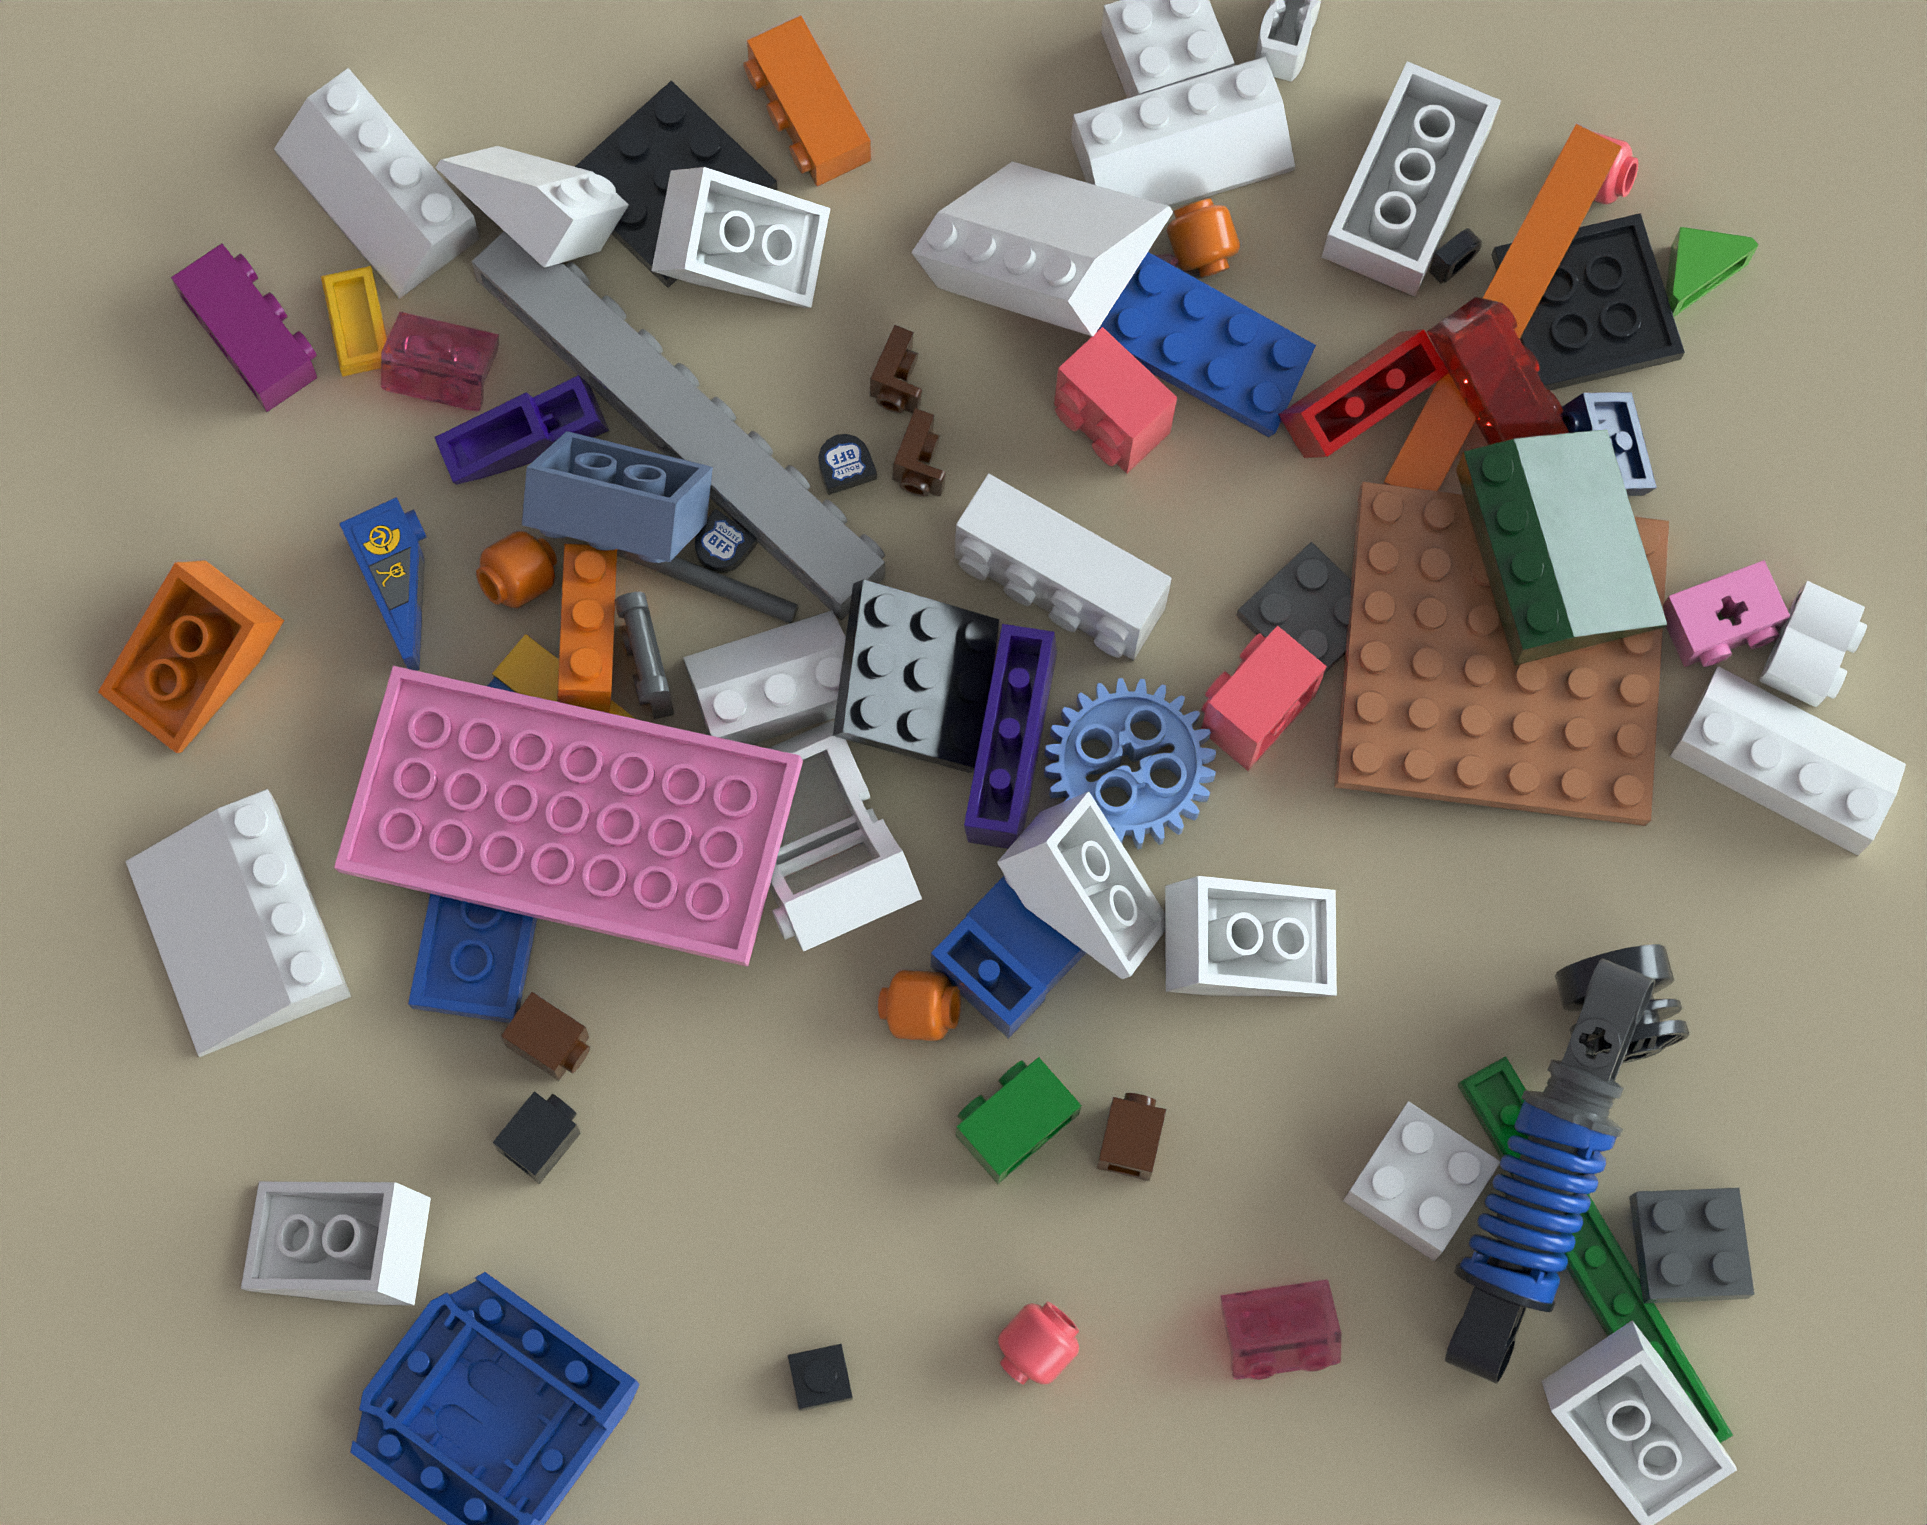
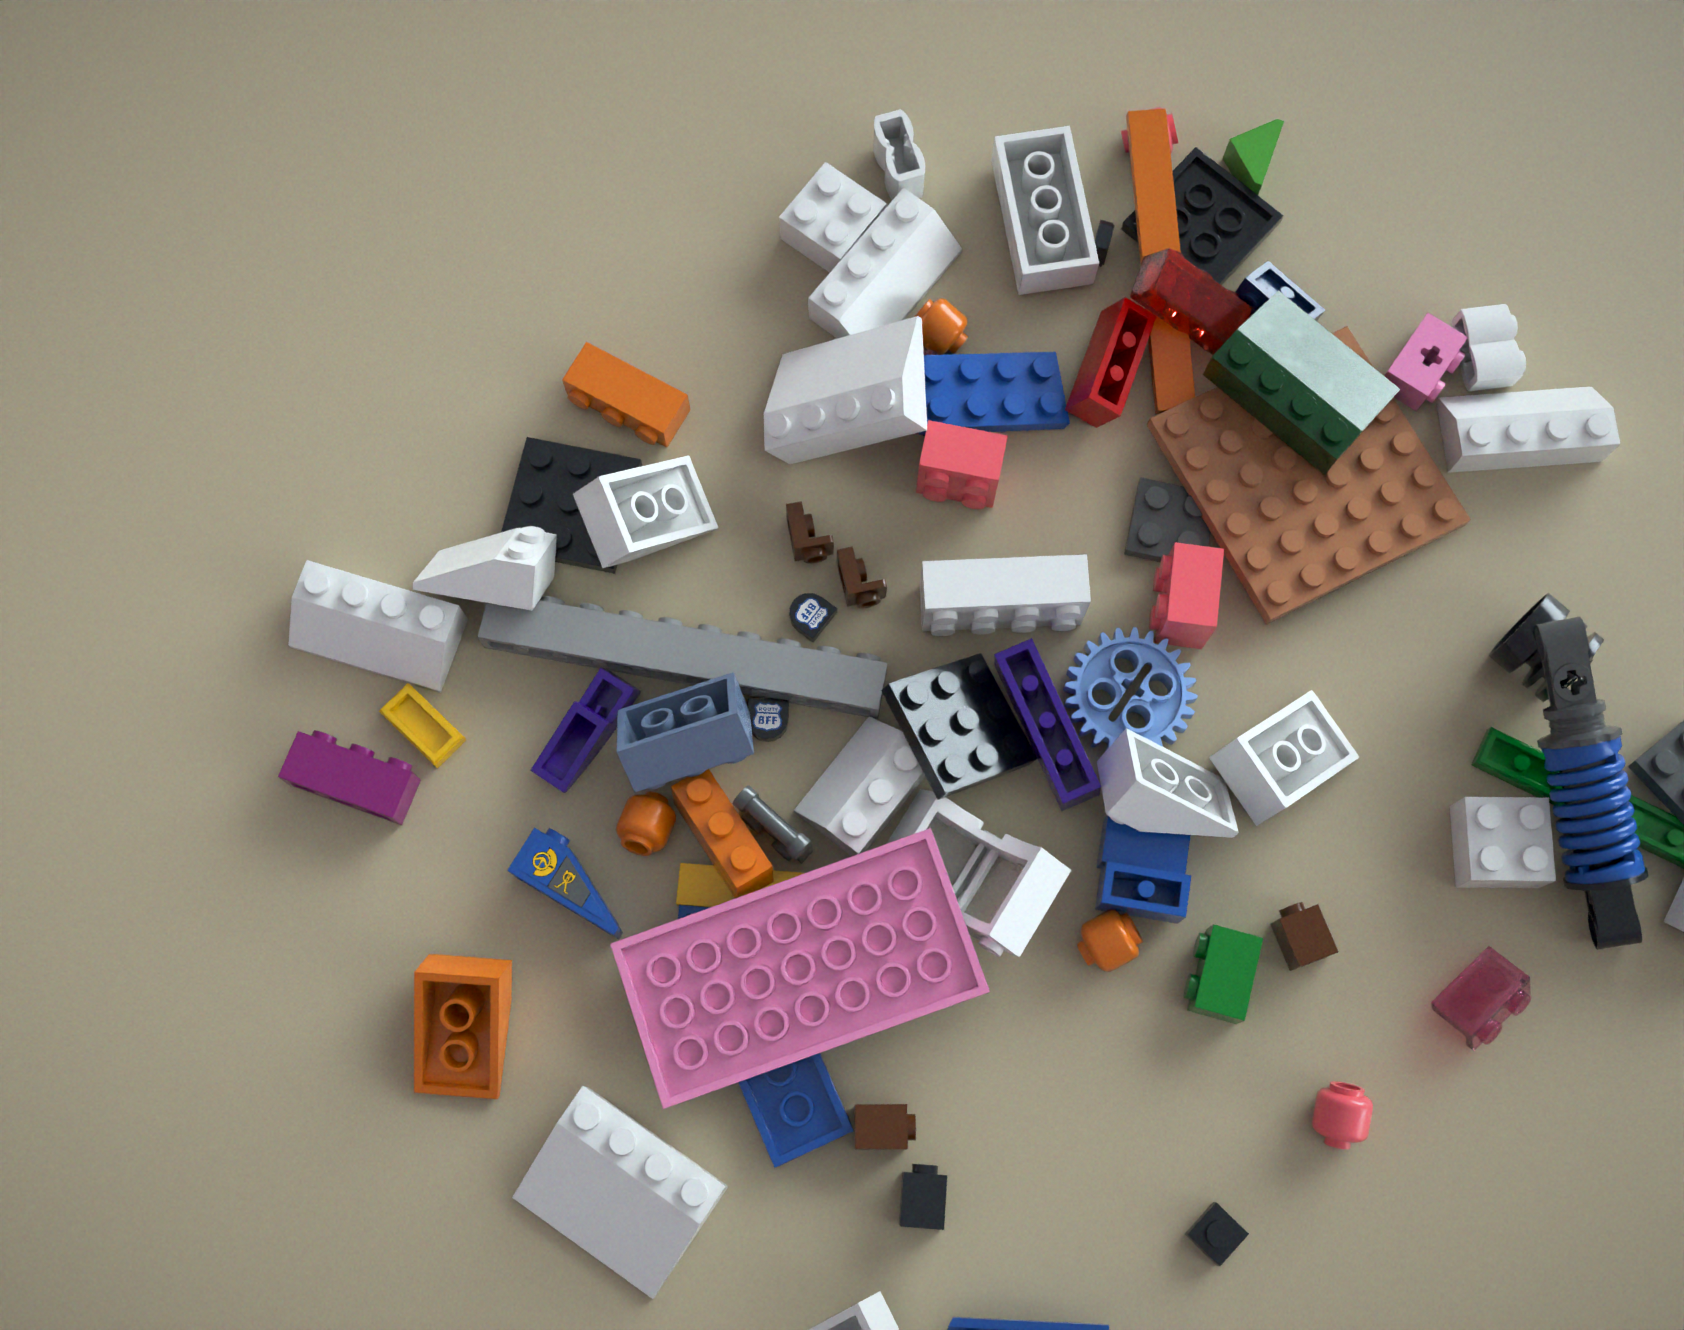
camera: 30 degrees left, 0 degrees up
(437, 361) = (497, 717): clear pink bracket -> none
(721, 586) = (794, 745): dark grey bar -> none

